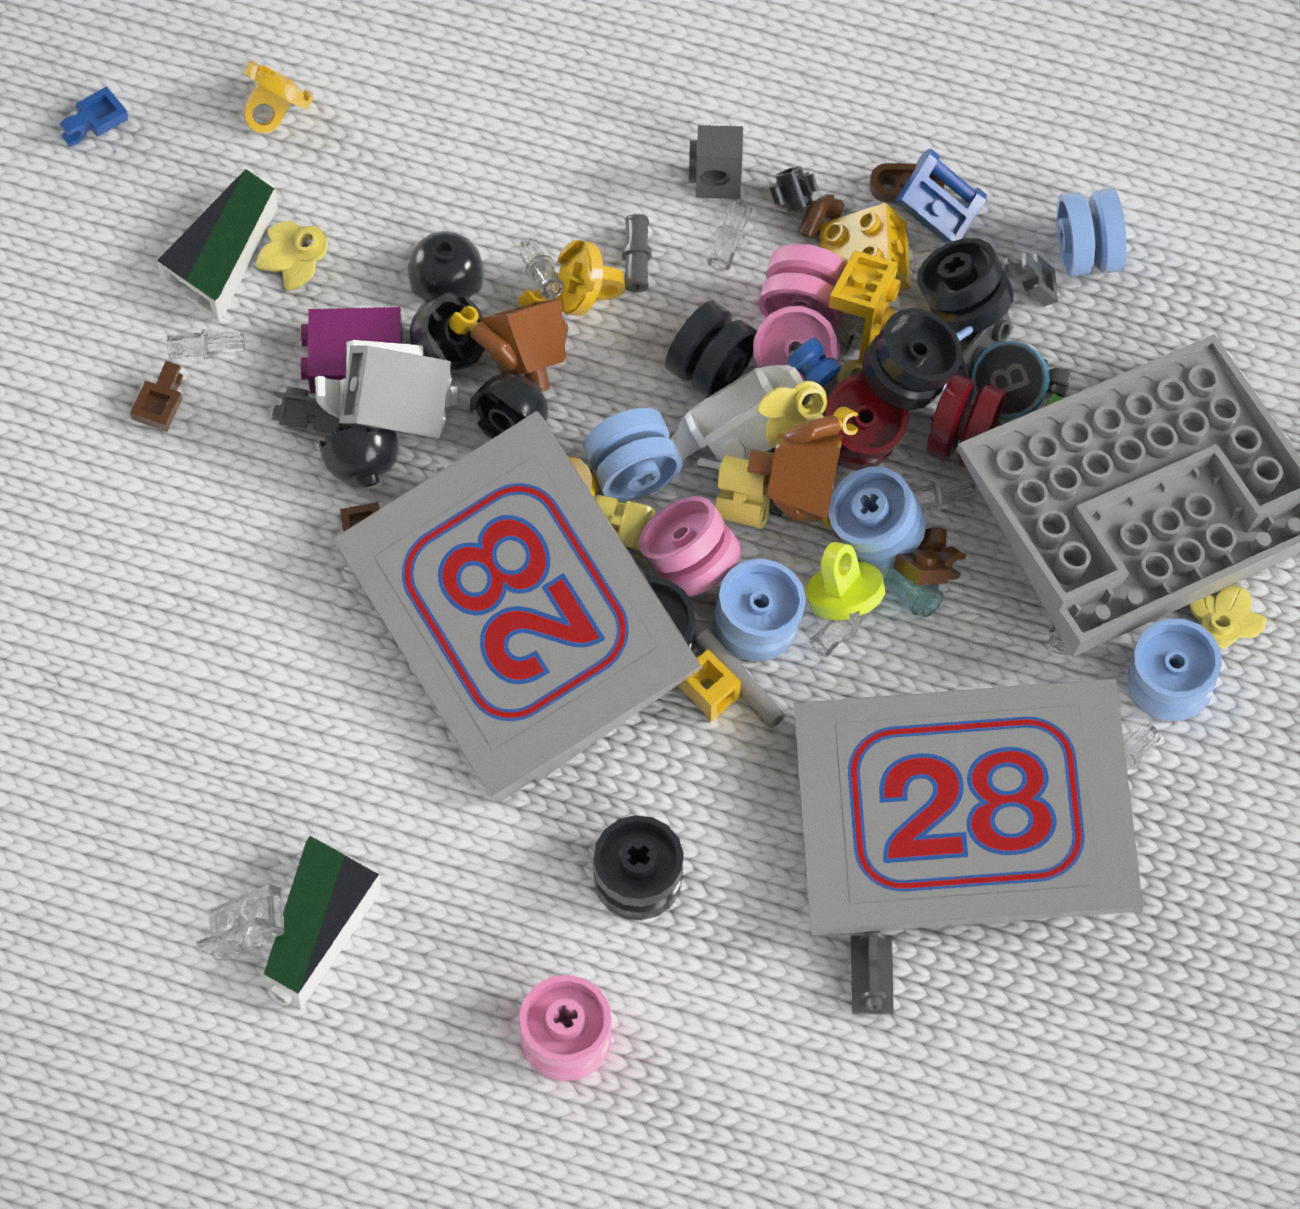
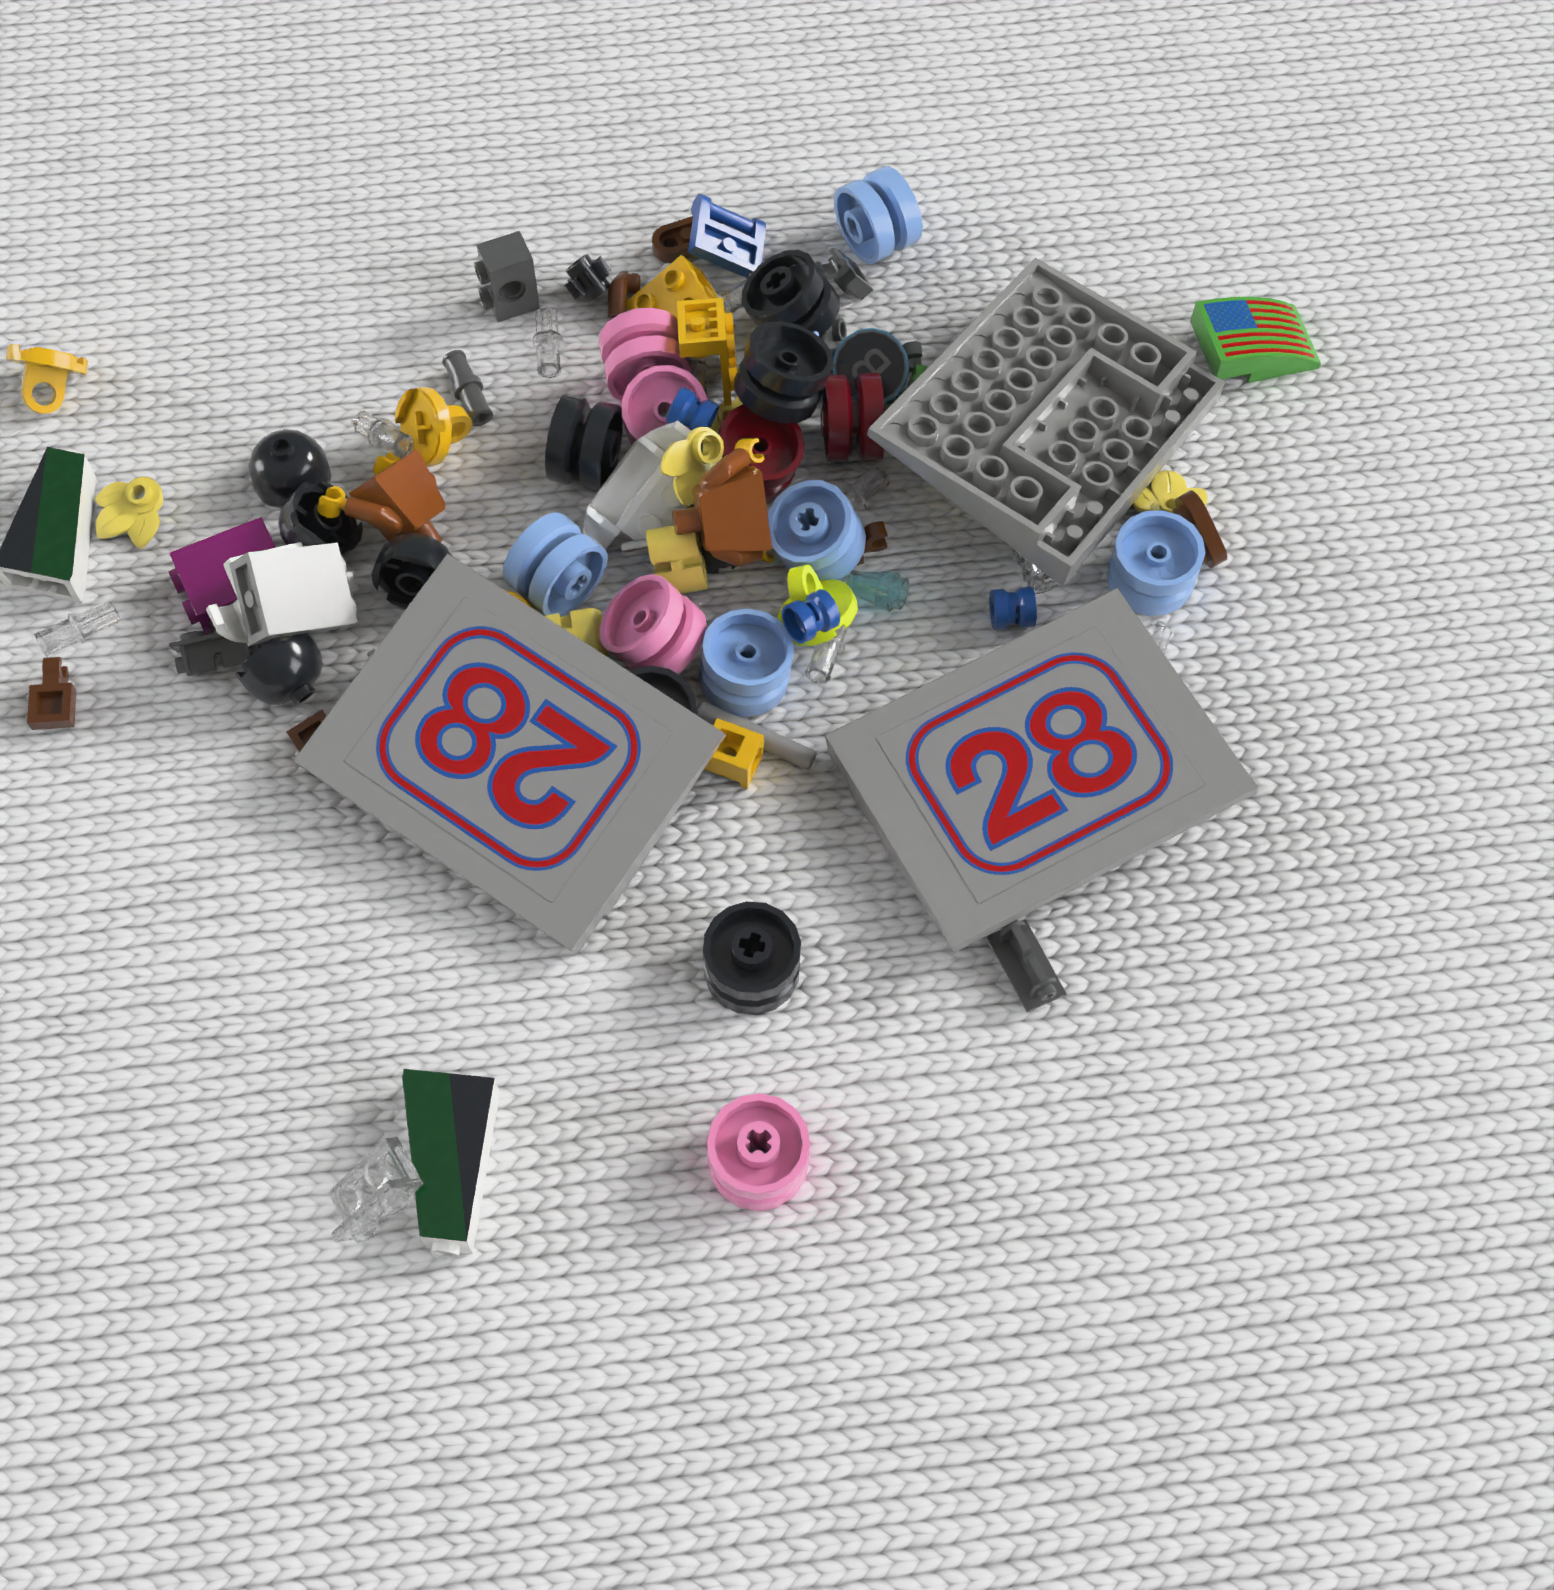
camera: 25 degrees left, 0 degrees up
(828, 592) = (808, 617): none -> blue wheel
(928, 568) = (883, 560): reddish brown plate -> none
(1016, 654) = (1012, 608): none -> blue wheel
(1233, 672) = (1194, 510): none -> reddish brown plate

